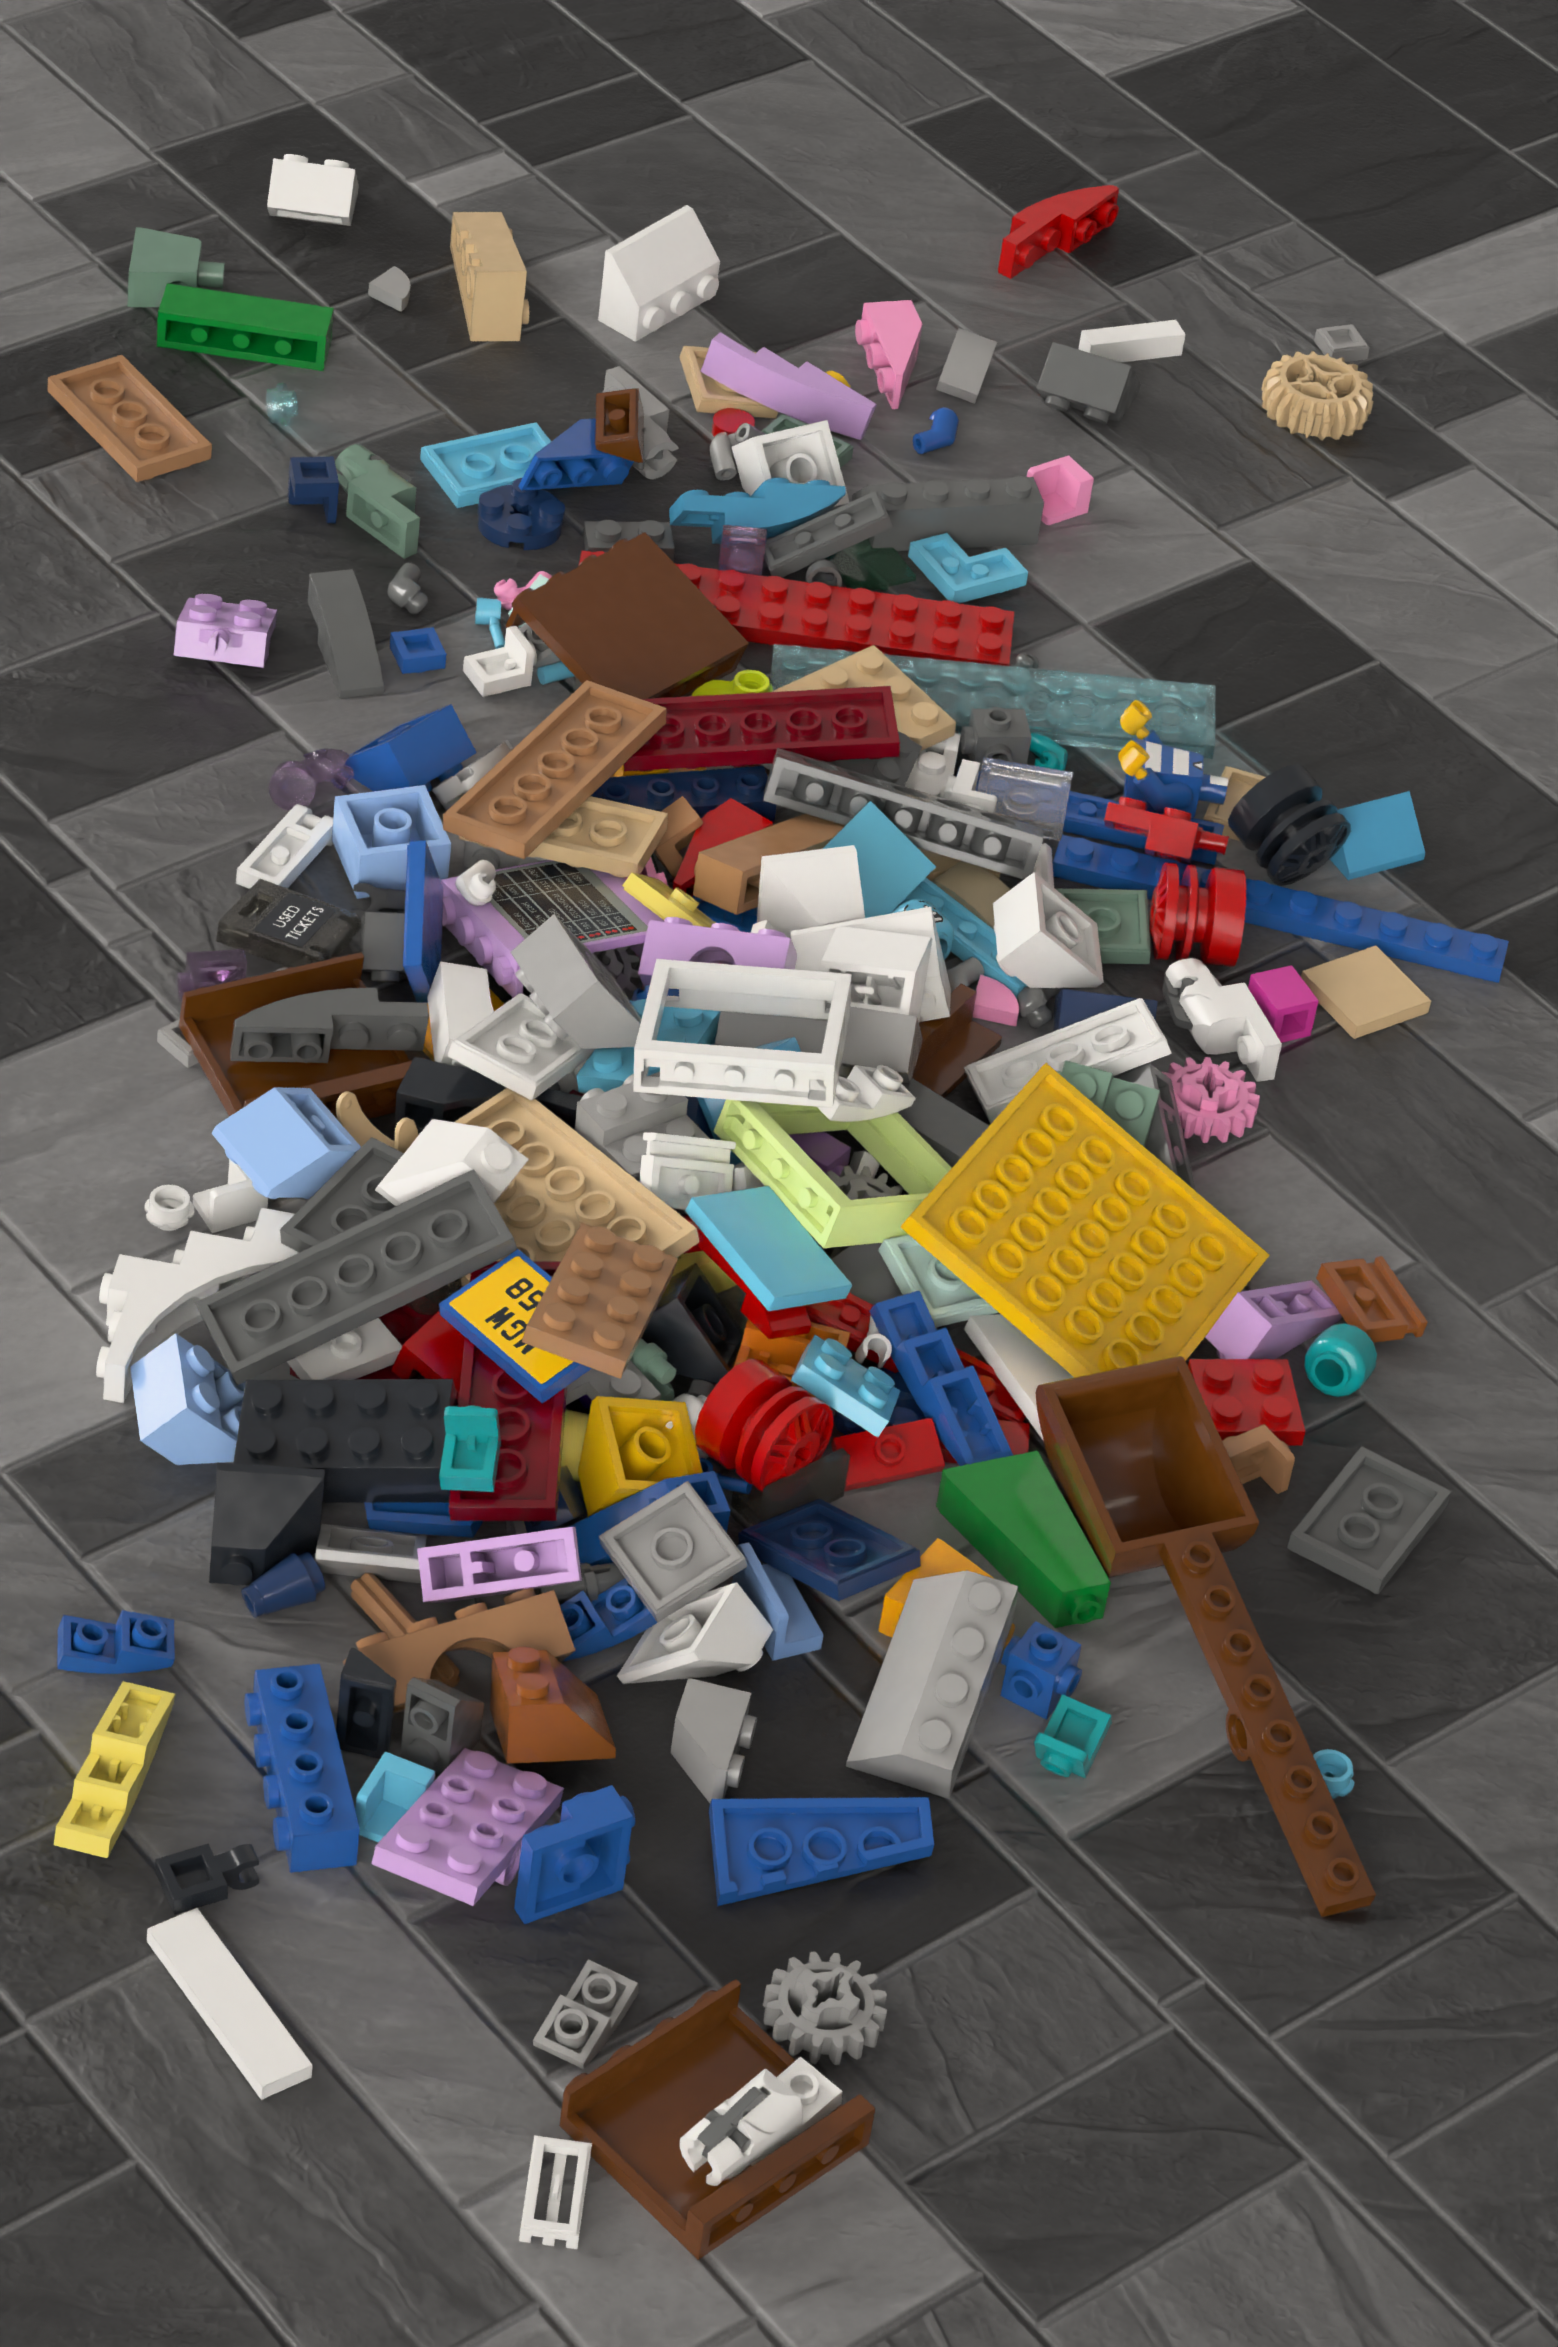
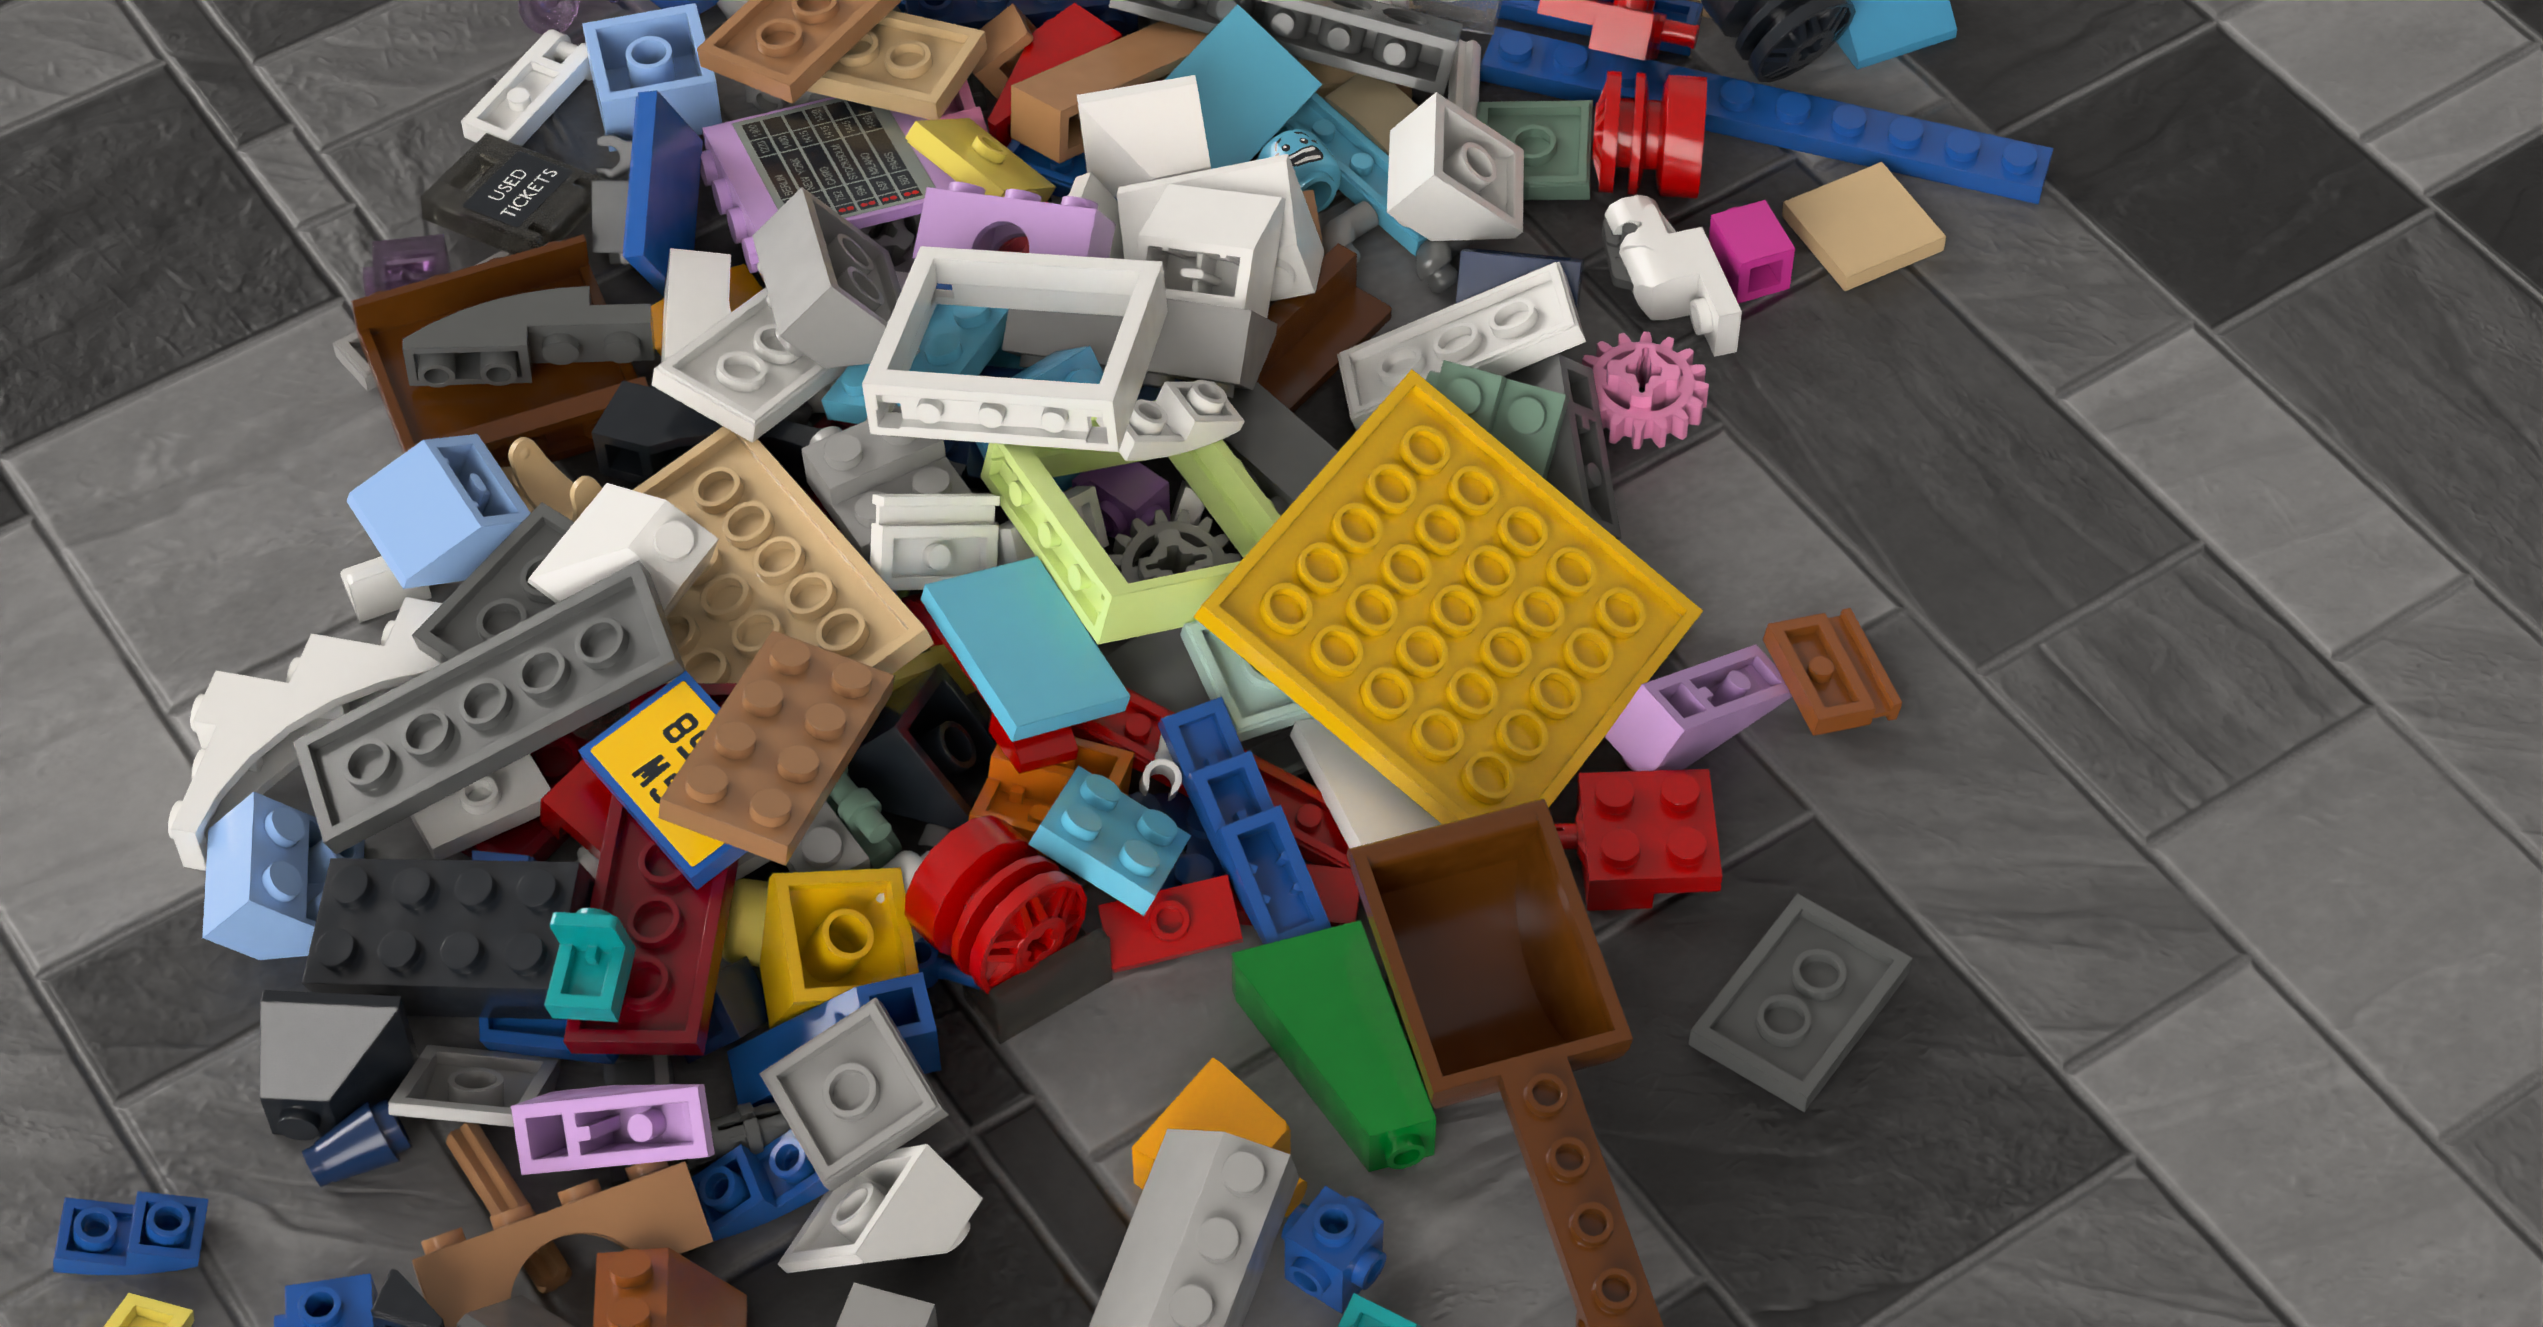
camera: 10 degrees right, 10 degrees up
(169, 1207) = (304, 592): white plate -> none
(474, 883) = (734, 136): white arm -> none
(781, 1605) = (999, 1155): medium blue panel -> none
(830, 1549) = (1071, 1076): dark blue tile -> none
(995, 1002) = (1386, 260): bright pink tile -> none
(1261, 1455) = (1647, 911): medium nougat bracket -> none
(1340, 1360) = (1781, 764): teal head -> none

